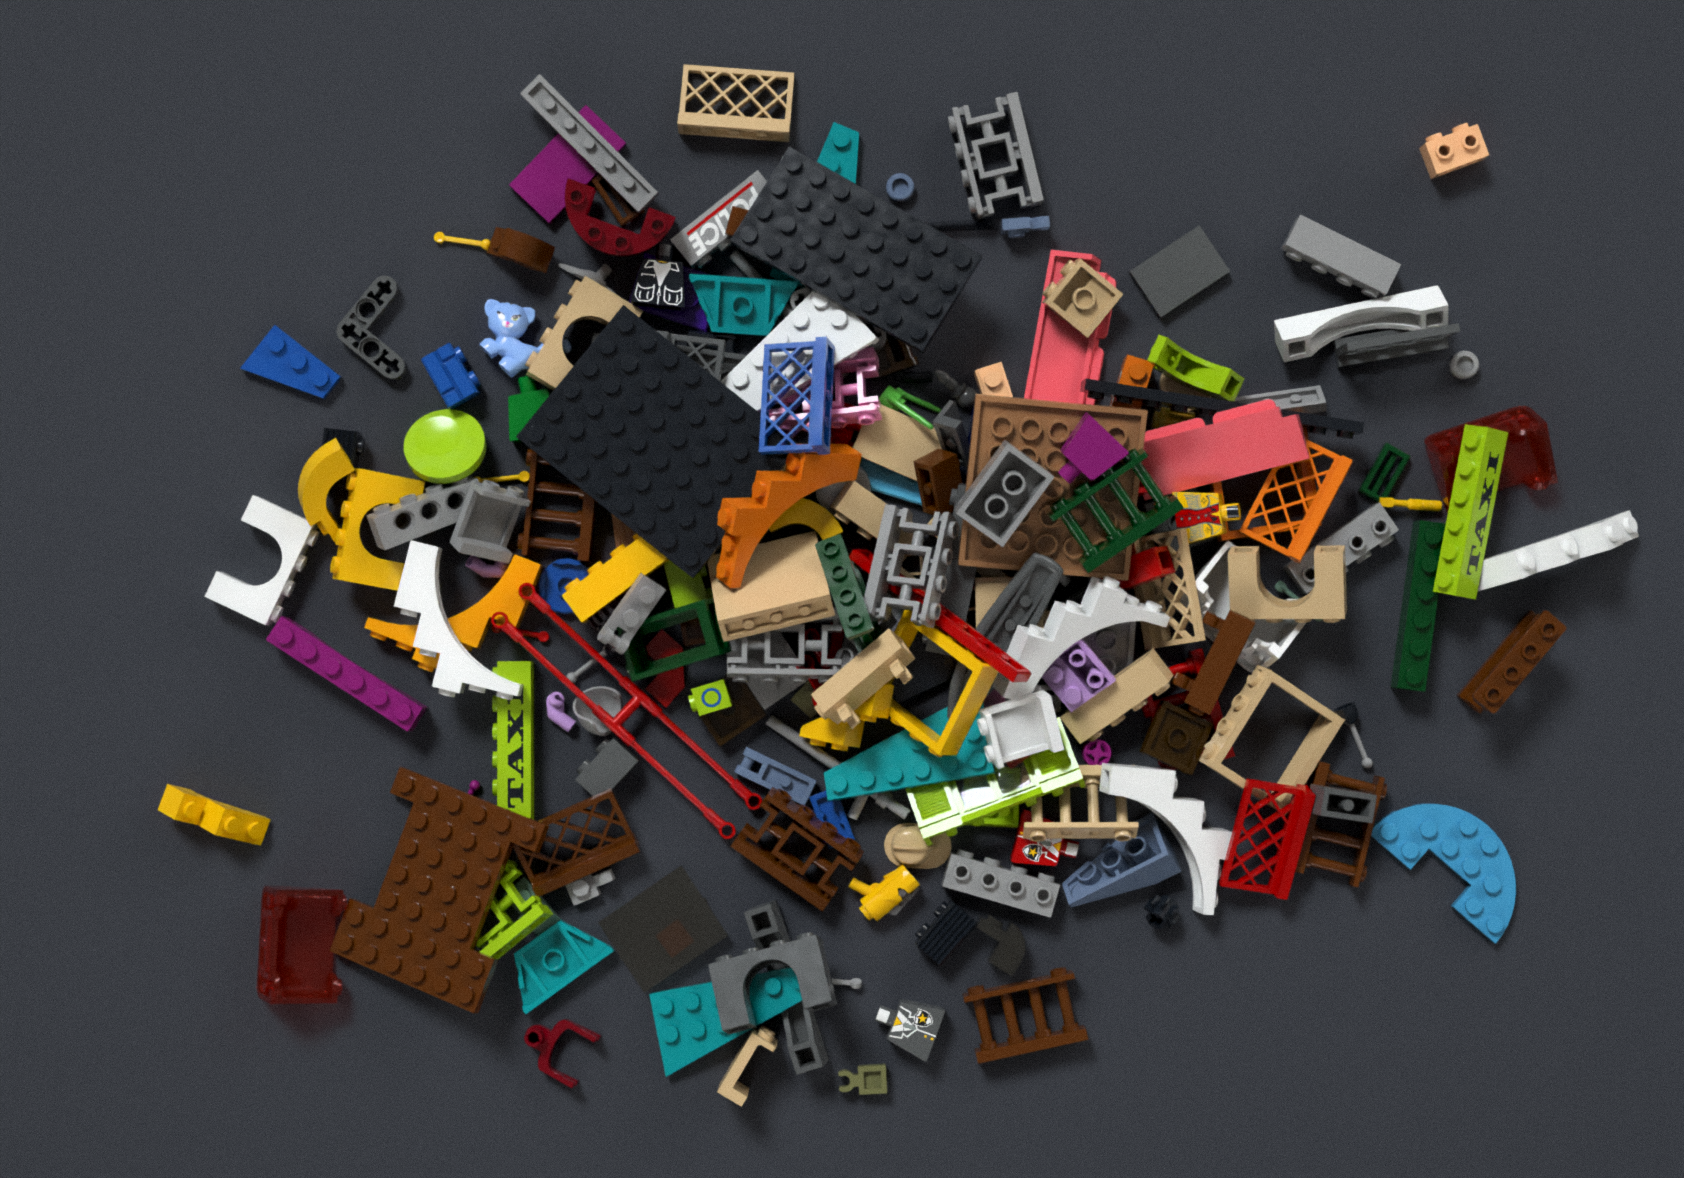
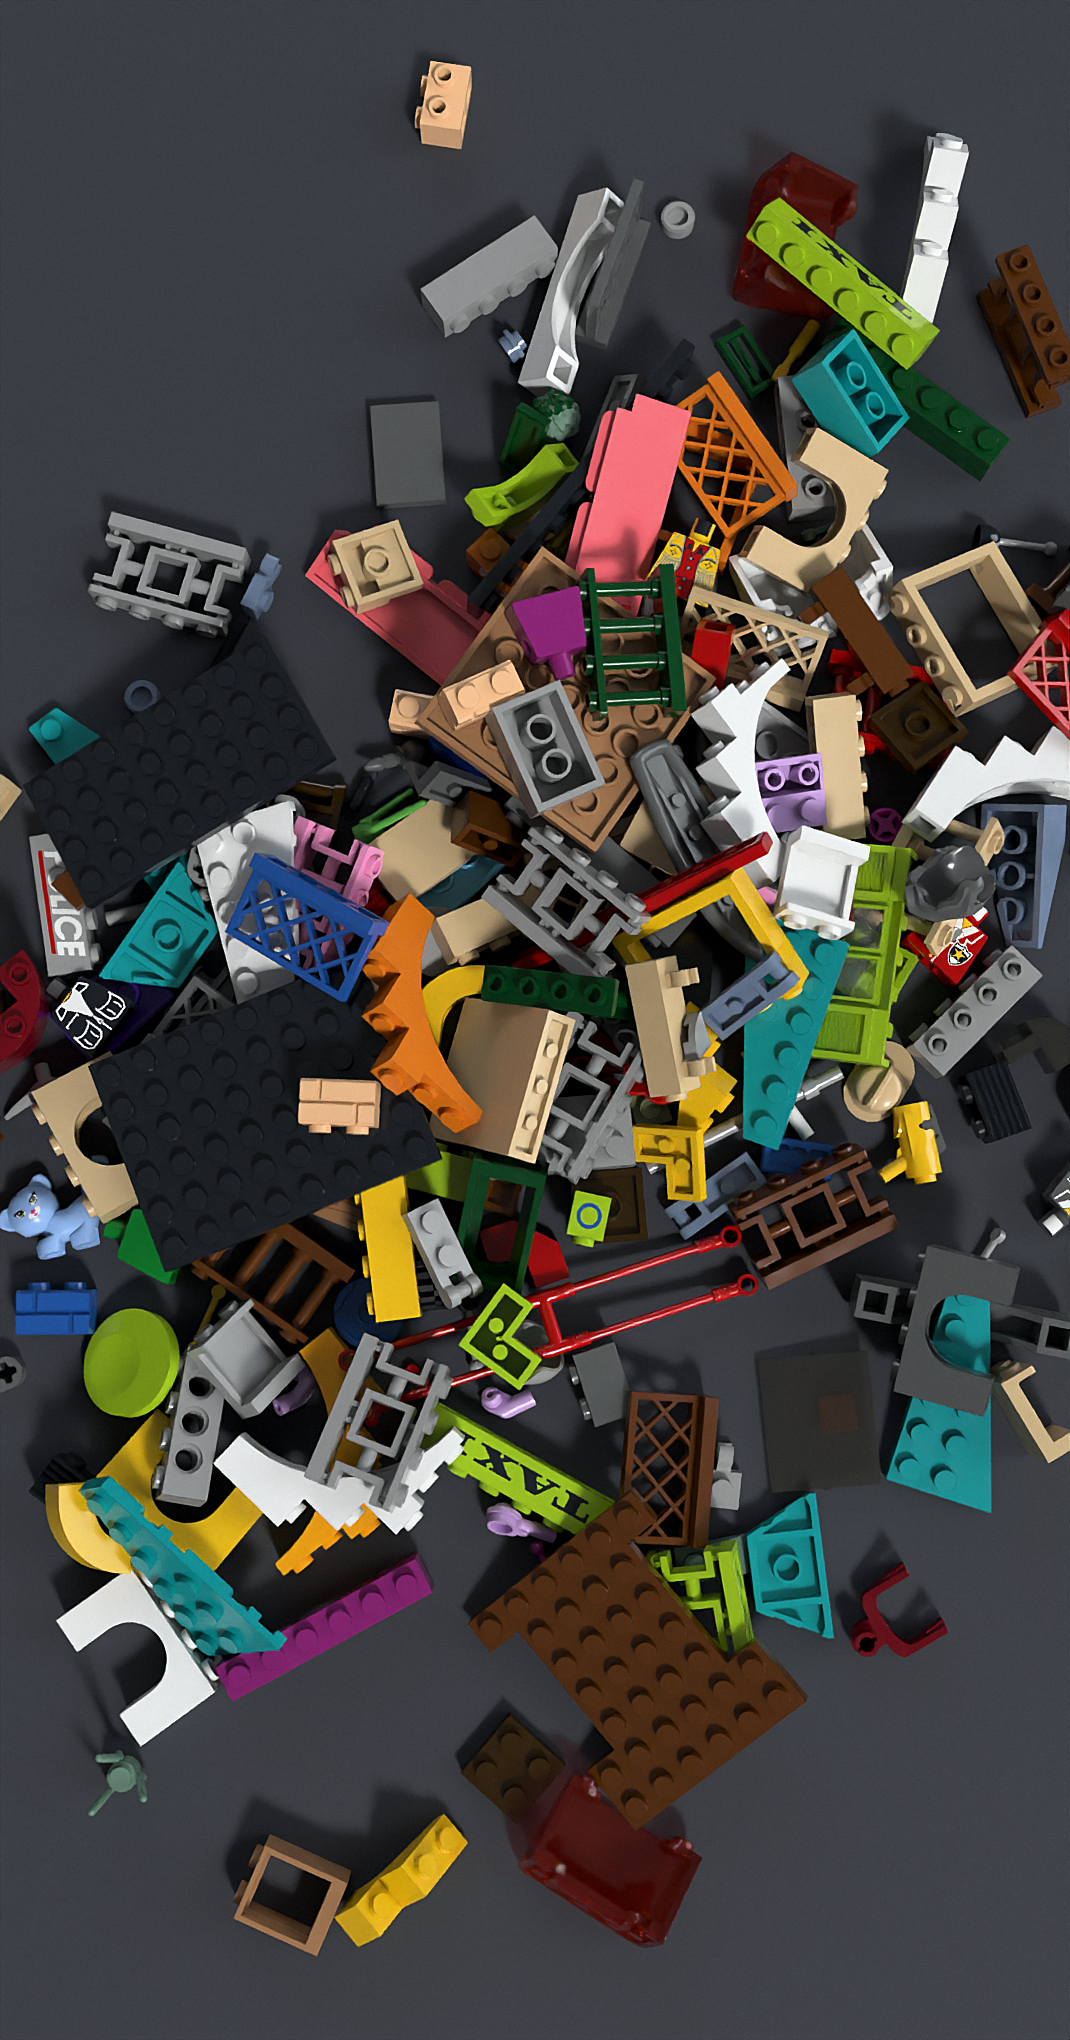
camera: 65 degrees left, 5 degrees down
(141, 748) = (277, 1924): none -> medium nougat window
(177, 594) = (120, 1777): none -> sand green plant
(324, 564) = (182, 1579): none -> teal wing
(324, 848) = (513, 1768): none -> dark brown plate
(481, 755) = (506, 1520): none -> lavender plate
(494, 609) = (350, 1411): none -> light grey fence
(594, 678) = (492, 1339): none -> lime brick
(689, 490) = (339, 1104): none -> light nougat brick
(790, 734) = (682, 1153): none -> yellow plate
(868, 703) = (697, 1037): none -> light grey tile
(914, 722) = (748, 996): none -> sand blue plate
(1016, 429) = (478, 694): none -> light nougat brick
(1069, 817) = (949, 885): none -> dark grey hair
(1231, 349) = (523, 438): none -> dark green tile
(1260, 361) = (562, 412): none -> piece
(1301, 301) = (513, 345): none -> sand blue plate
(1388, 563) = (850, 395): none -> teal brick

